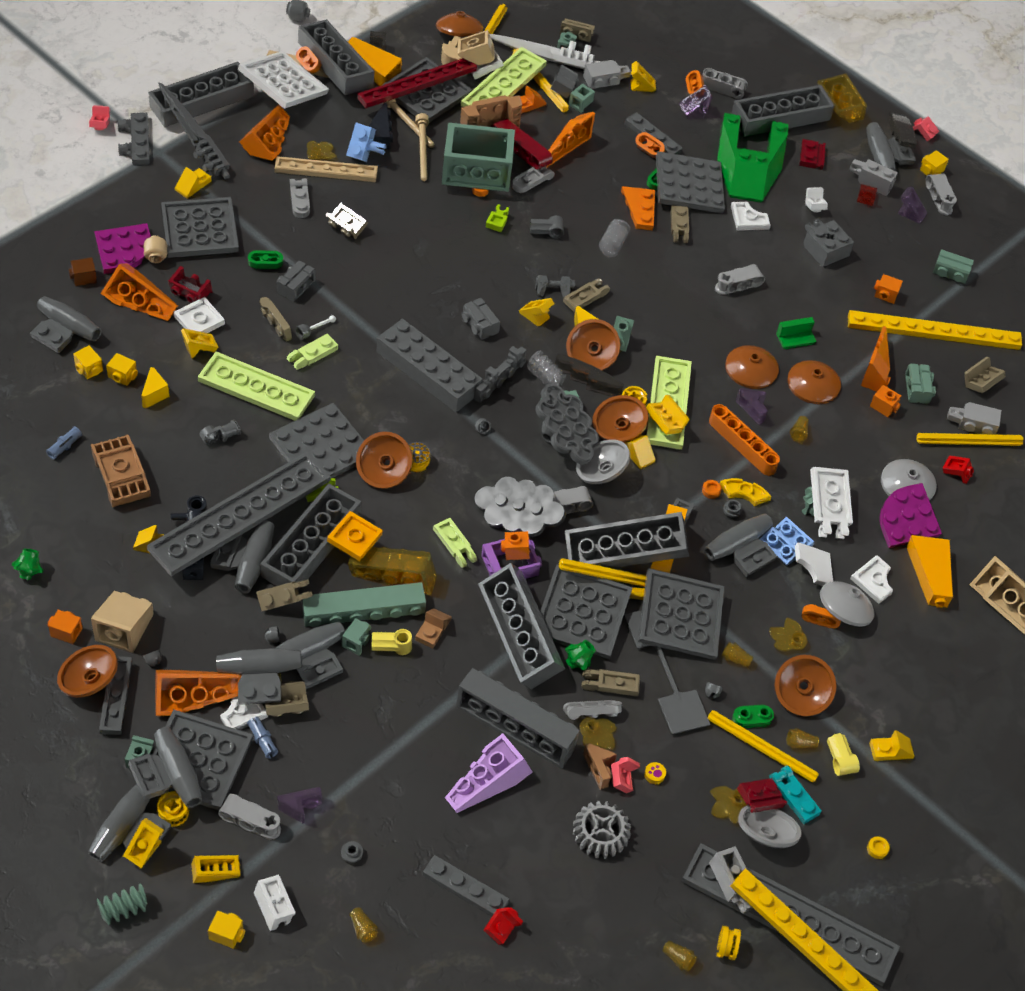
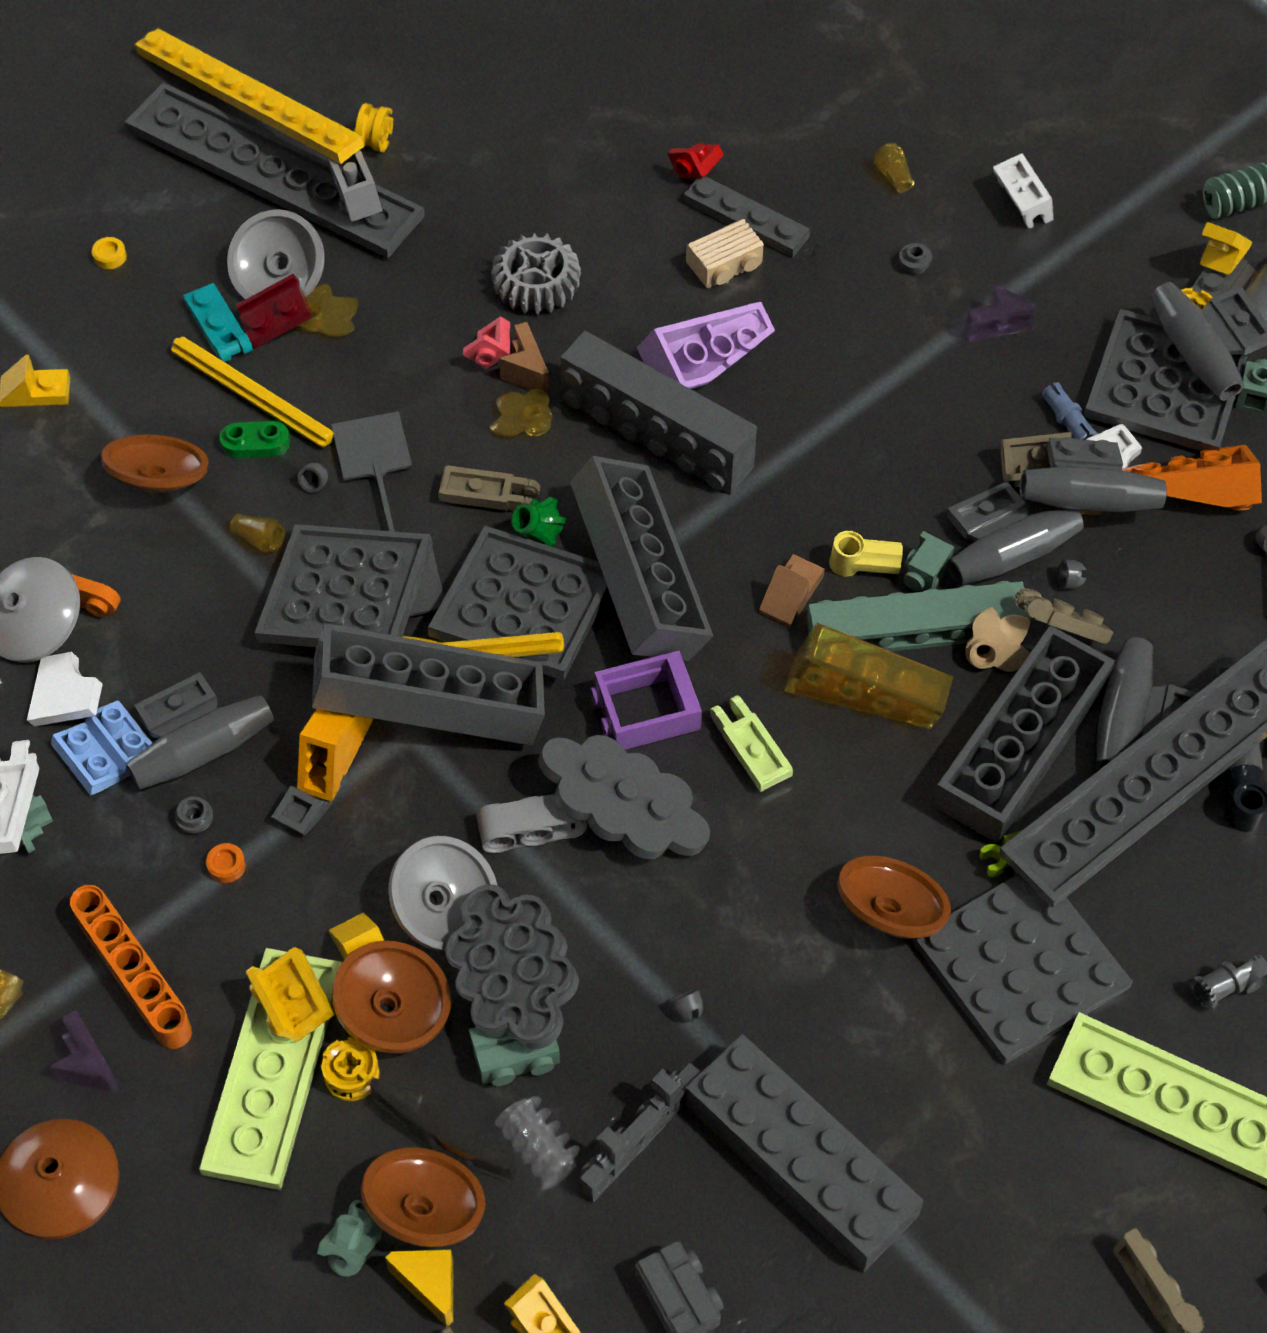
camera: 170 degrees left, 5 degrees up
(215, 875) = (1121, 231): yellow slope -> none
(226, 929) = (1086, 163): yellow brick -> none
(250, 817) = (1073, 299): light grey piece -> none
(304, 331) = (1087, 1258): dark grey hinge -> none
(313, 352) = (1059, 1205): yellowish green hinge -> none
(326, 587) = (1002, 637): none -> tan plate
(354, 535) = (946, 706): light orange plate -> none
(421, 456) = (825, 927): yellow wheel -> none
(479, 847) = (725, 253): none -> tan brick
(516, 545) = (640, 688): orange brick -> none
(592, 708) = (525, 443): light grey plate -> none
(655, 773) = (437, 357): yellow tile -> none
(681, 956) = (443, 122): clear yellow cone -> none
(741, 489) = (157, 862): yellow tile -> none
(786, 636) = (158, 570): clear yellow plate -> none
(800, 739) = (185, 395): clear yellow cone -> none
(843, 760) = (123, 366): light yellow piece -> none

